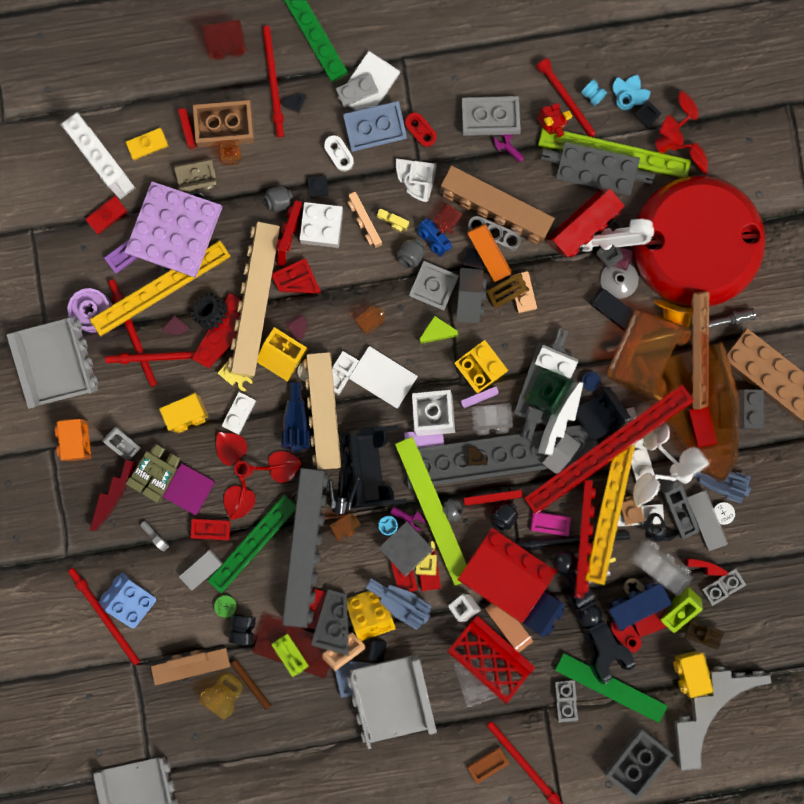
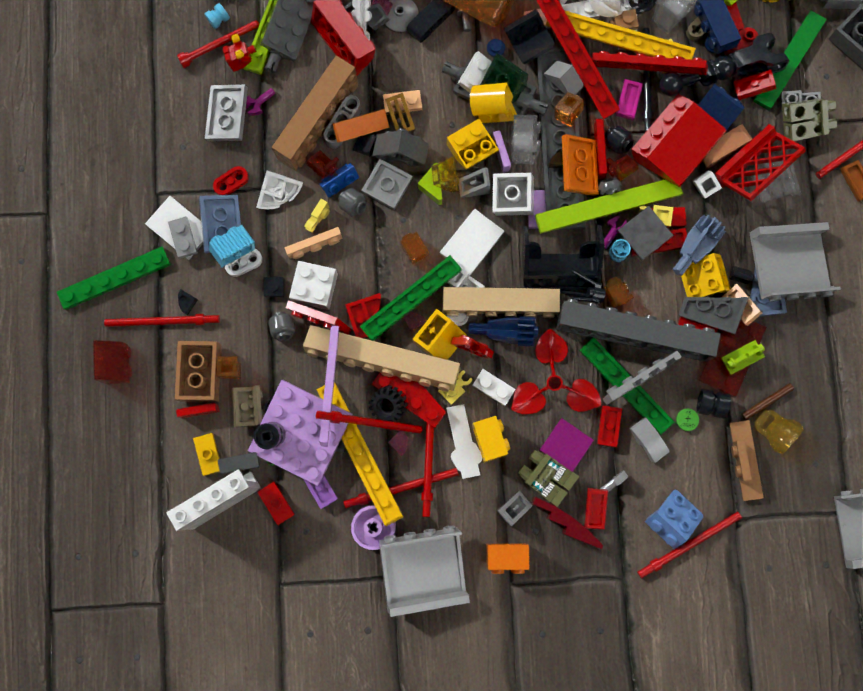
camera: 85 degrees left, 5 degrees down
(129, 522) = (596, 508): none -> red plate
(139, 174) = (240, 462): none -> dark grey slope
(164, 200) = (269, 435): none -> black wheel
(169, 391) = (467, 454): none -> white sticker
(184, 261) = (337, 417): none -> red bar
(217, 251) = (329, 384): none -> lavender tile
(264, 559) = (643, 375): none -> light grey wing
(274, 381) = (472, 346): none -> red wing
(317, 322) = (411, 298): none -> green tile
(350, 139) = (231, 245): none -> medium azure brick
(442, 373) = (475, 183): none -> light grey slope
(447, 343) = (445, 175): none -> clear yellow wing
(471, 477) = (580, 165): none -> orange tile
(475, 521) = (622, 167): none -> clear red bracket
(524, 381) = (492, 102): none -> yellow brick
(527, 454) = (569, 108): none -> clear orange brick
(544, 708) = (813, 116): none -> olive hips
(557, 422) = (537, 77): white slope -> none
(577, 651) = (755, 85): none -> red plate

